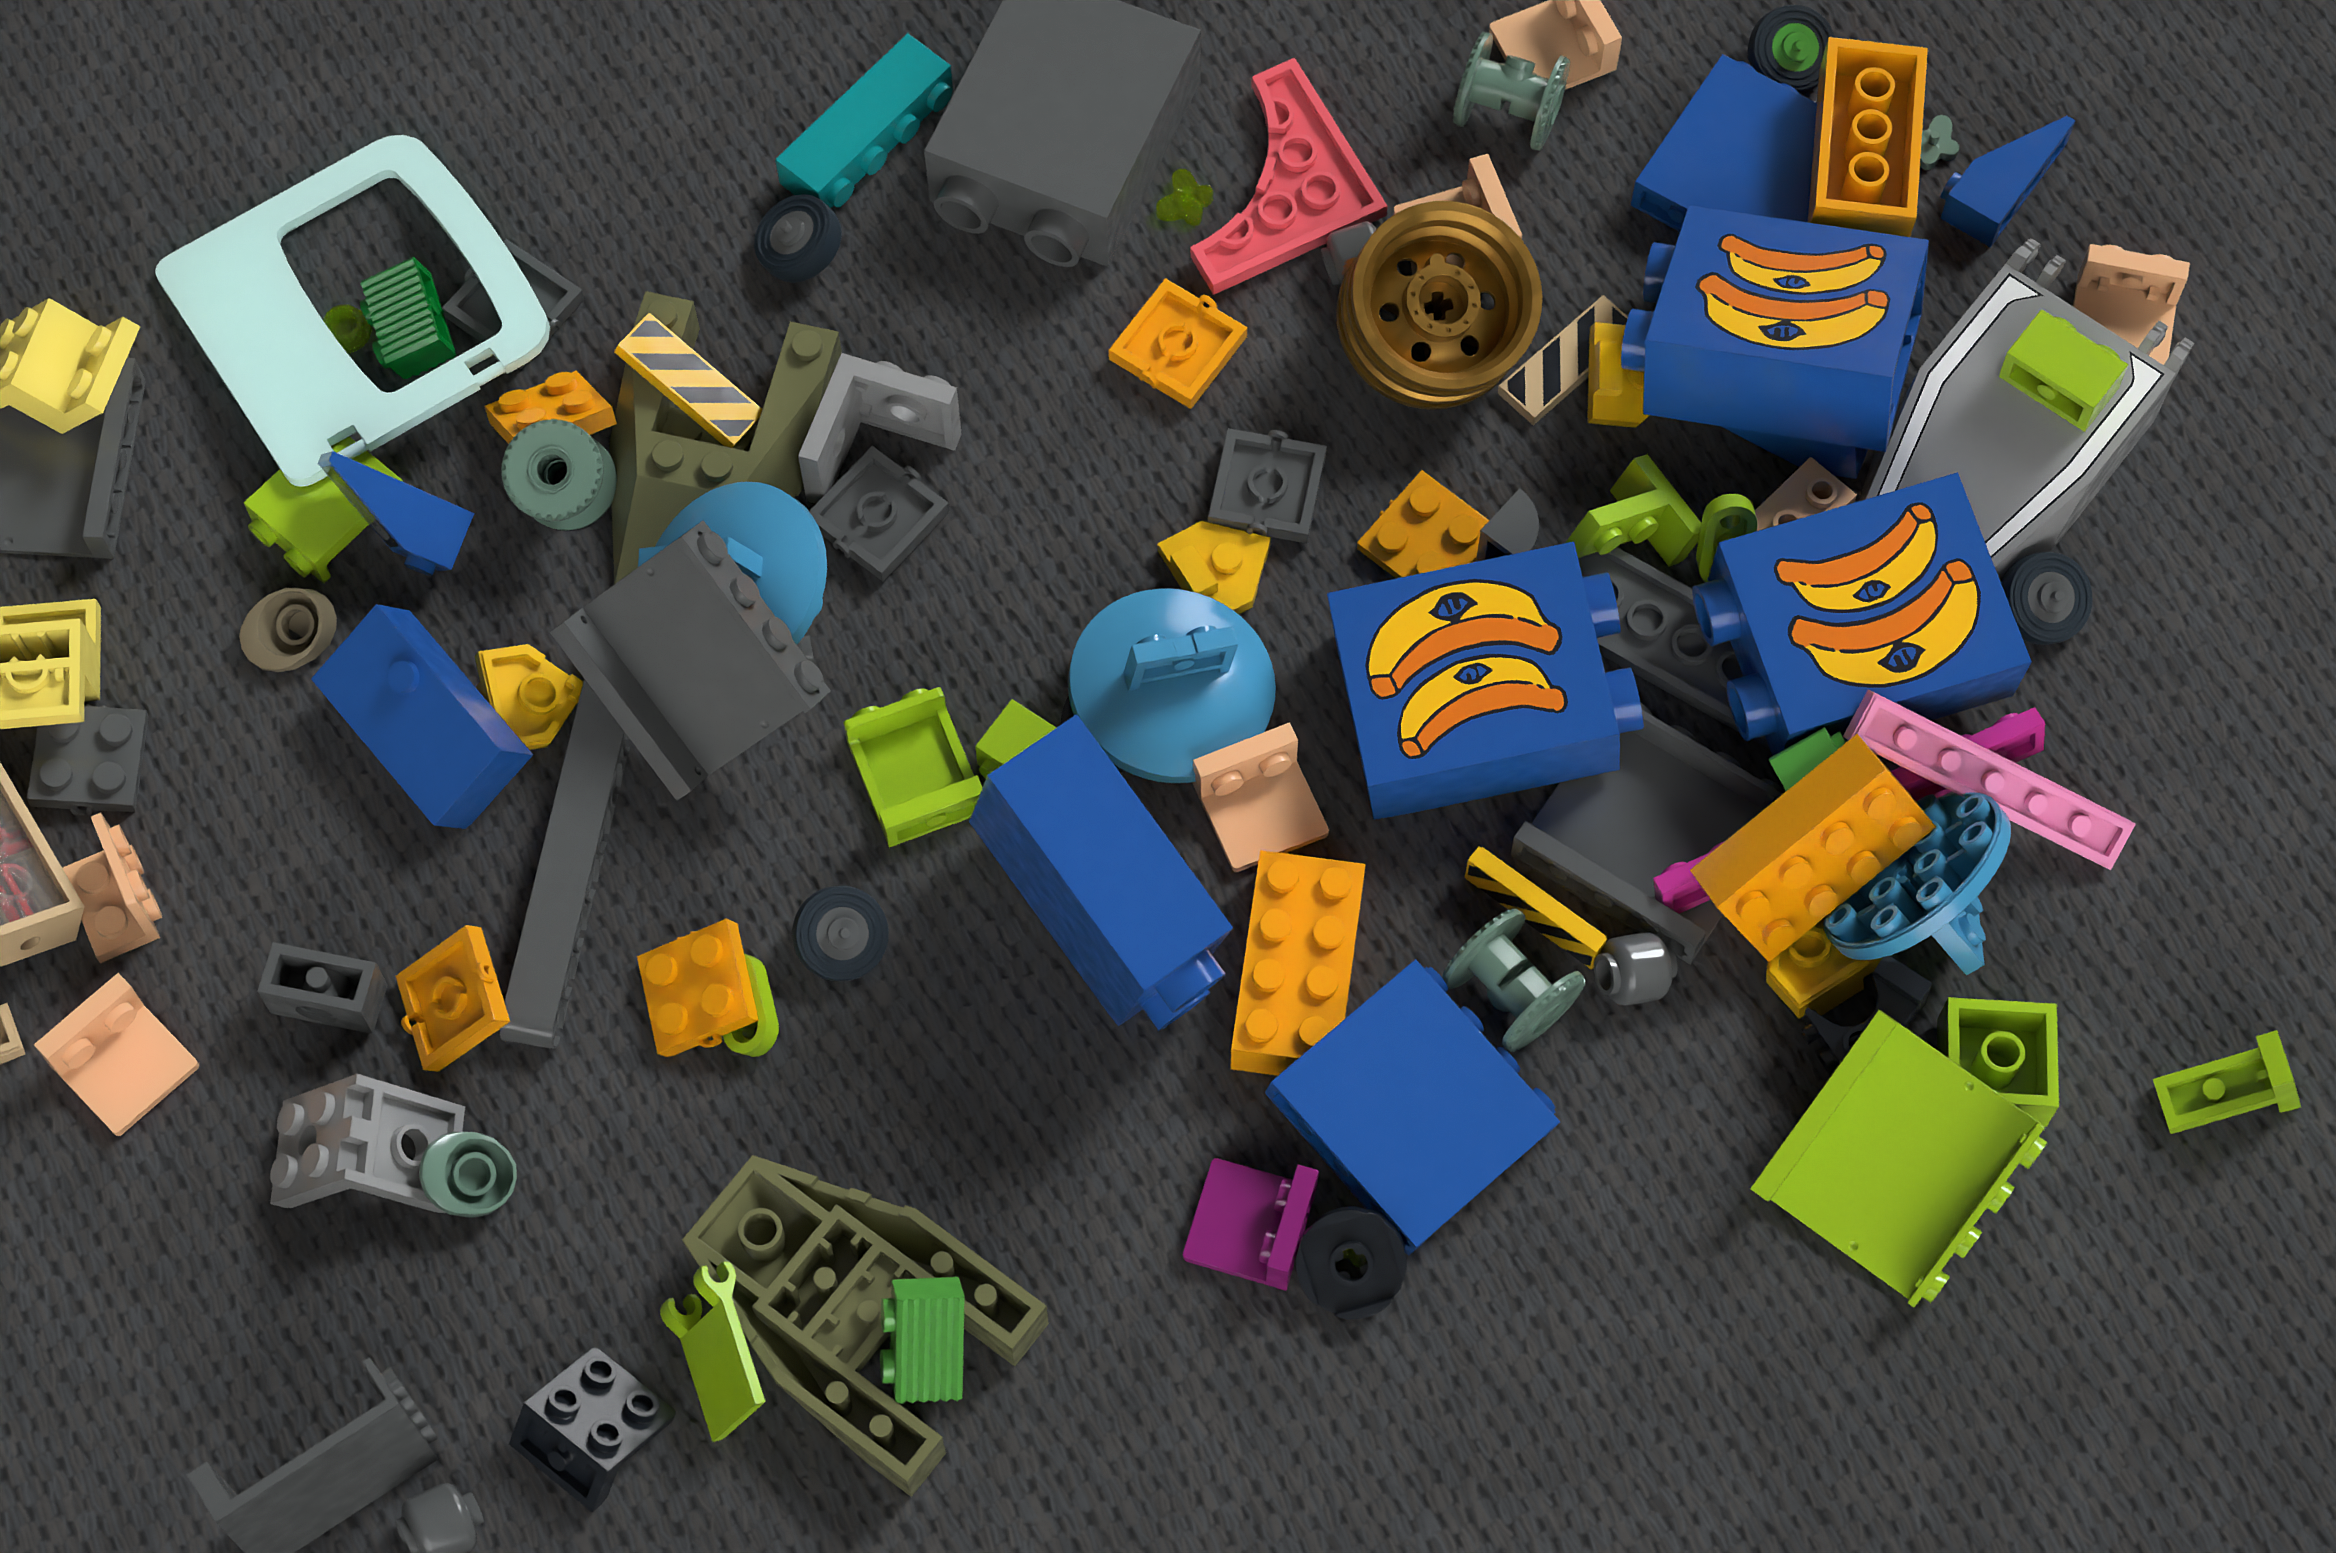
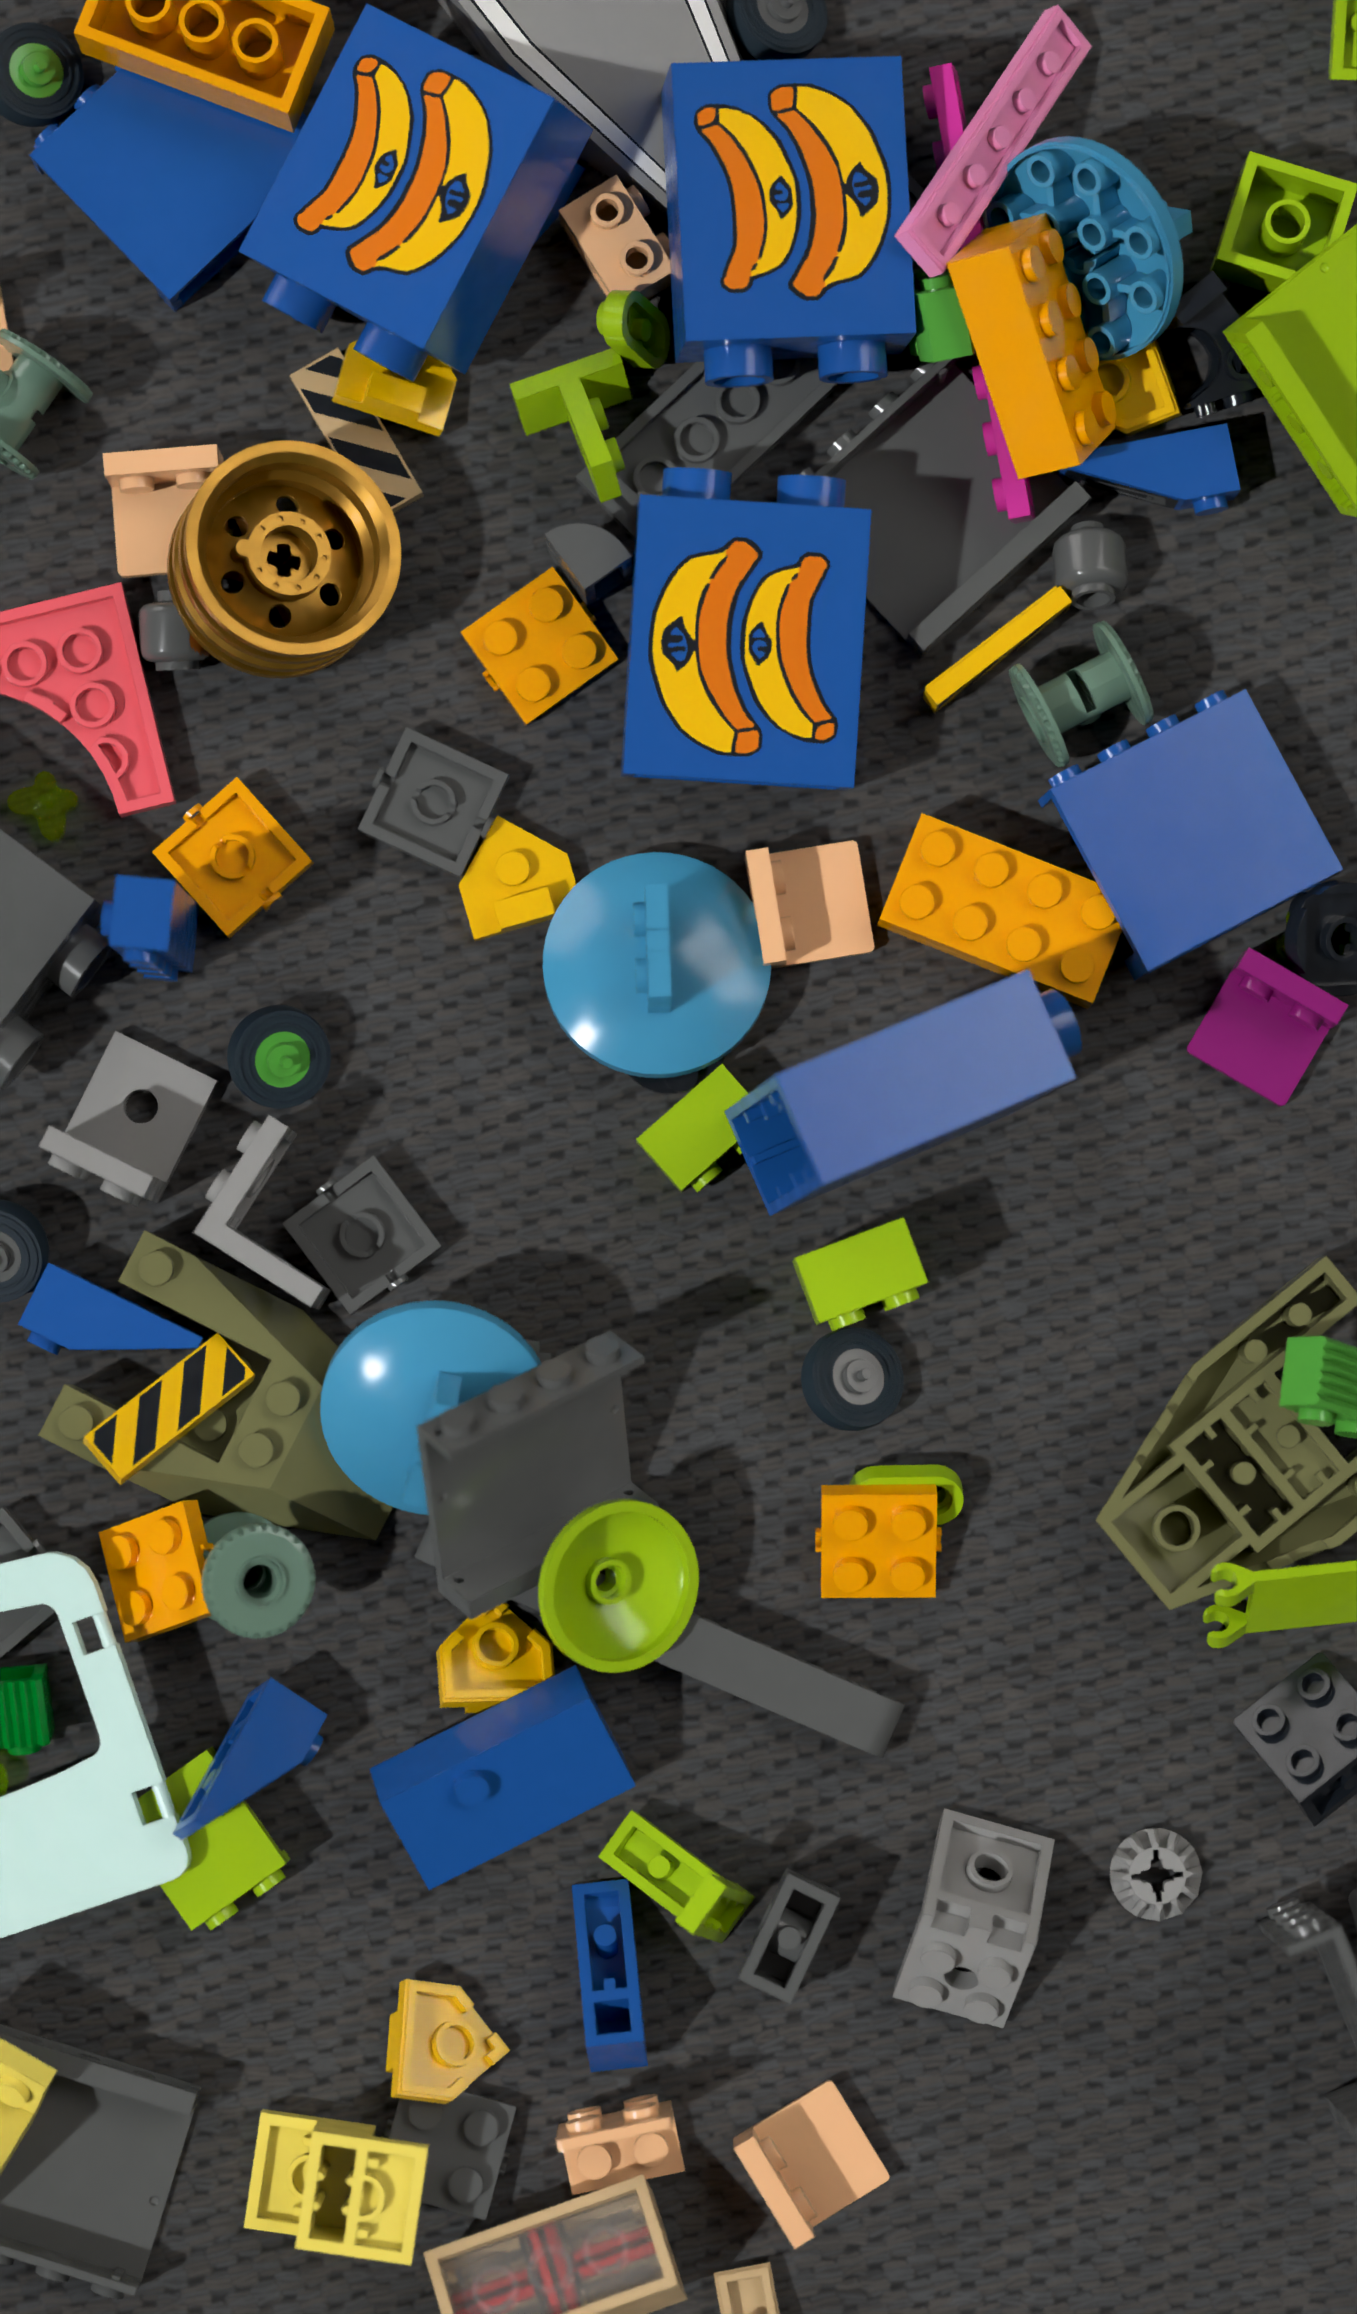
camera: 75 degrees left, 20 degrees up
(178, 728) = (437, 2043): none -> yellow plate
(257, 853) = (609, 1976): none -> blue slope
(267, 625) = (352, 1929): dark tan hat -> none
(346, 898) = (676, 1878): none -> lime bracket
(452, 998) = (833, 1800): light orange plate -> none
(459, 1319) = (1136, 1855): none -> light grey gear
(467, 1174) = (1030, 1817): sand green hat -> none
(571, 762) = (645, 1590): none -> lime dish
(758, 311) = (90, 1318): none -> blue slope
(905, 304) = (103, 1139): none -> light grey bracket
(912, 765) = (675, 1260): lime panel -> none
(935, 909) = (860, 1273): none -> lime brick
(1015, 412) = (279, 1056): none -> black wheel
(1093, 264) = (152, 926): none -> blue brick
(1746, 1022) = (1167, 470): none -> blue slope

